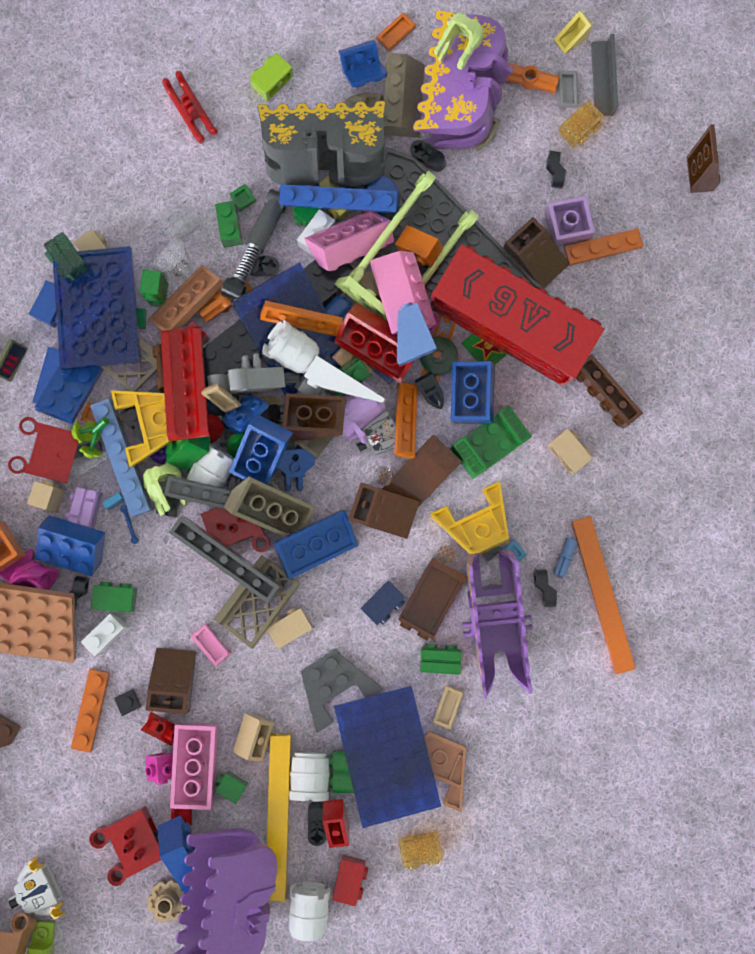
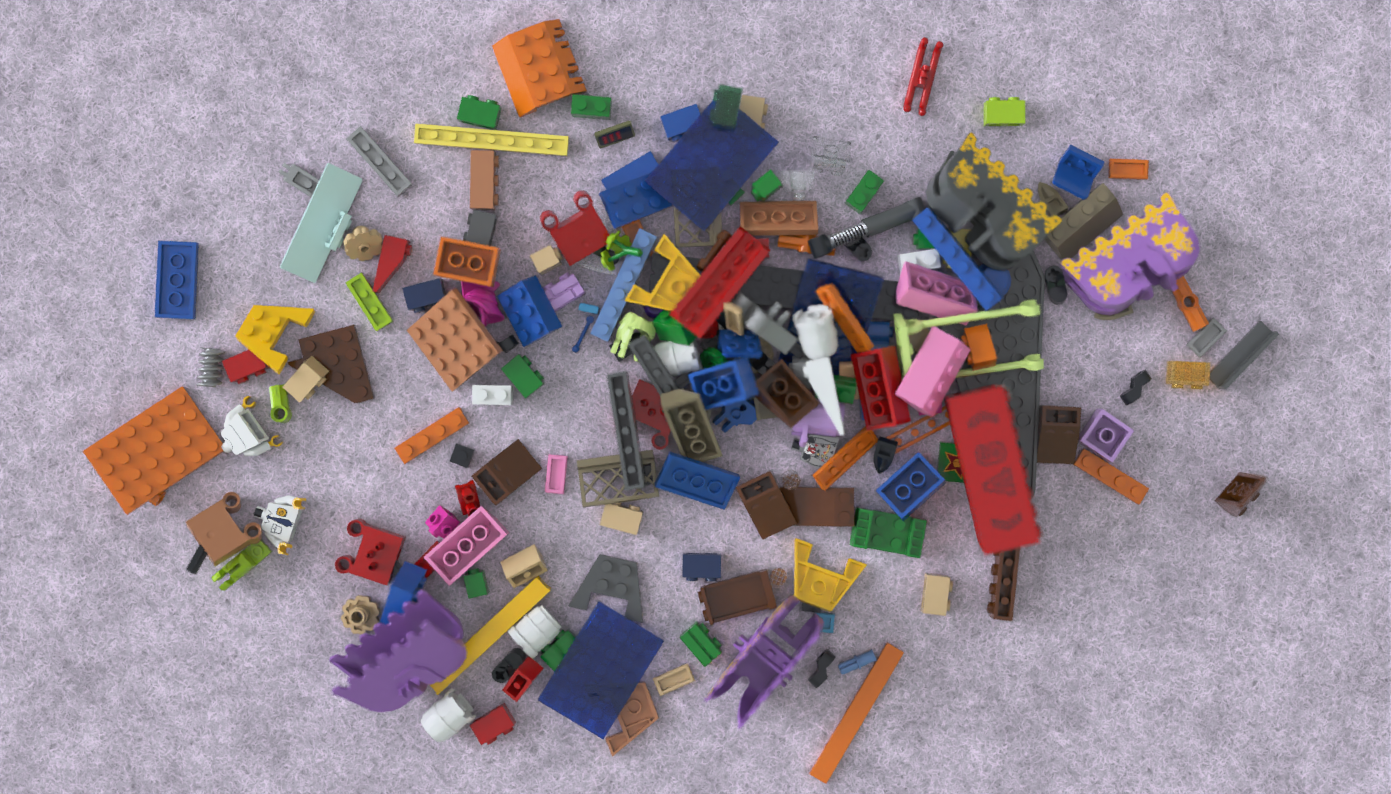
camera: 55 degrees right, 5 degrees up
(242, 197) = (893, 181): green plate -> none
(413, 335) = (907, 411): medium blue slope -> none
(420, 850) = (560, 753): clear yellow brick -> none
(444, 366) = (923, 443): dark green tile -> none
(465, 26) = (1171, 242): yellowish green piece -> none
(574, 33) = (1252, 301): light yellow slope -> none

